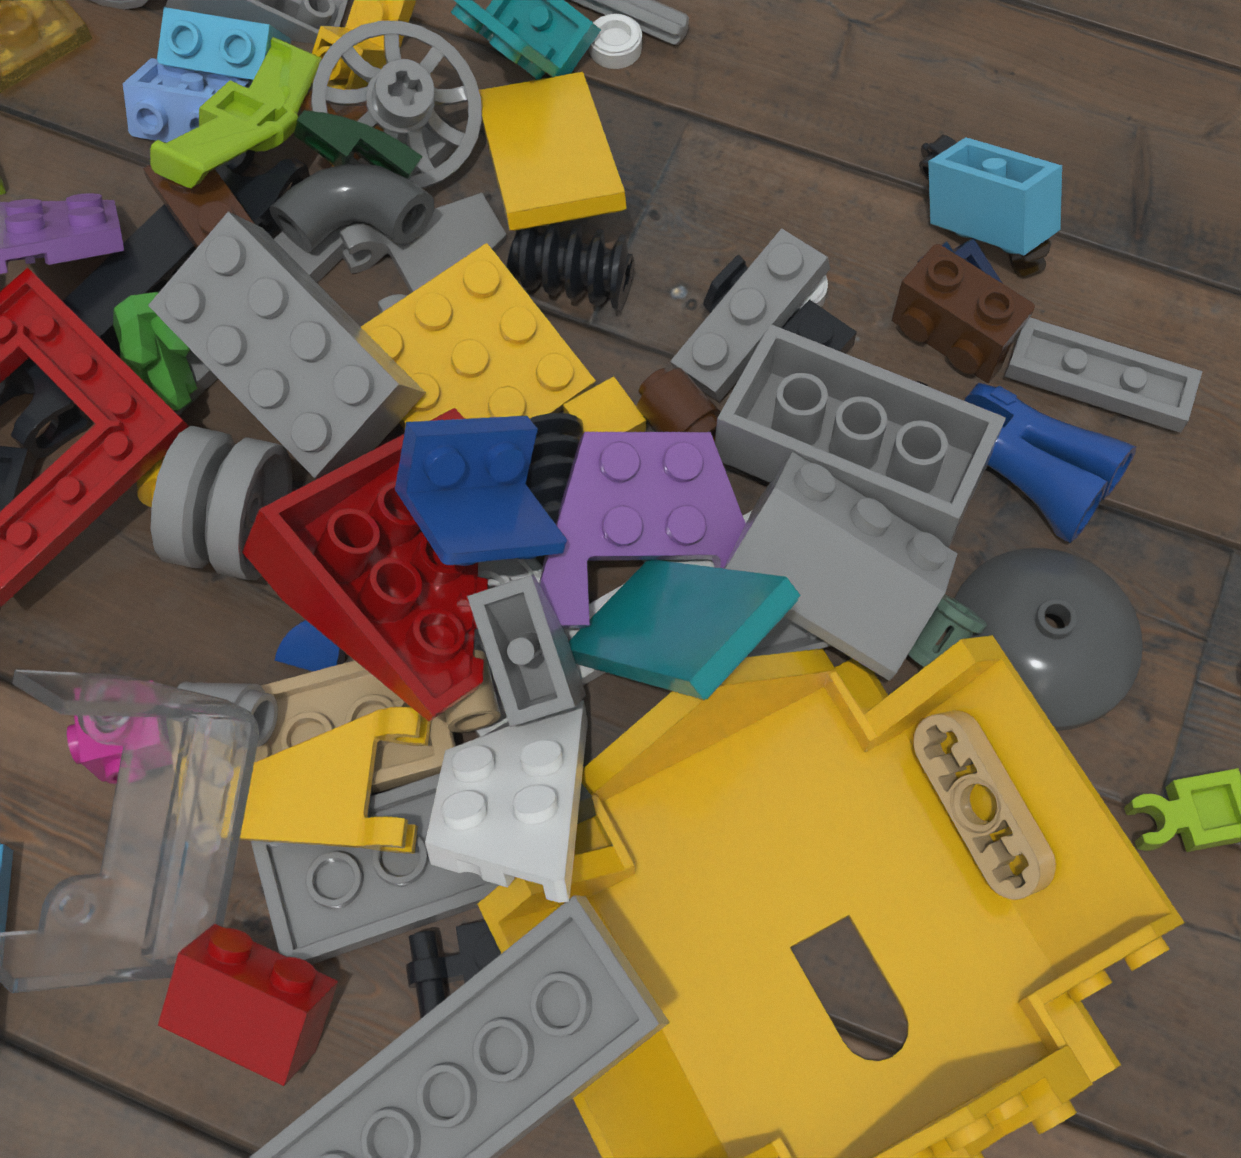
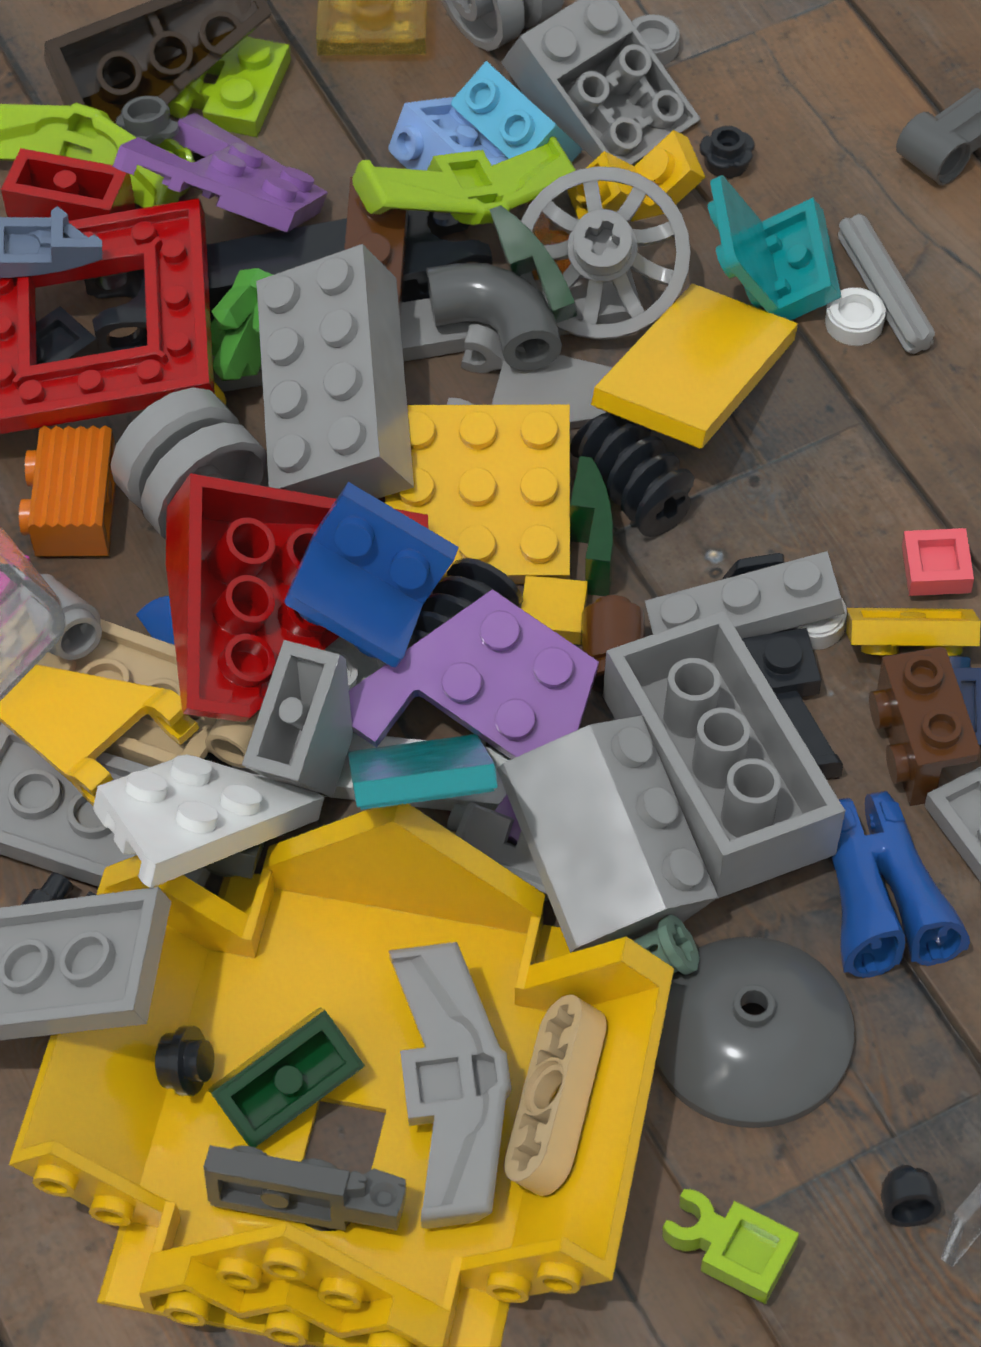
camera: 40 degrees right, 10 degrees down
(125, 594) = (70, 492): none -> orange brick
(583, 325) = (593, 525): none -> dark green slope
(682, 1009) = (184, 1060): none -> black plate
(761, 956) = (286, 1077): none -> dark green slope
(849, 186) = (937, 562): none -> coral plate
(873, 1038) = (303, 1190): none -> dark grey hinge
(890, 240) = (885, 629): none -> yellow plate
(903, 855) = (453, 1083): none -> light grey plate

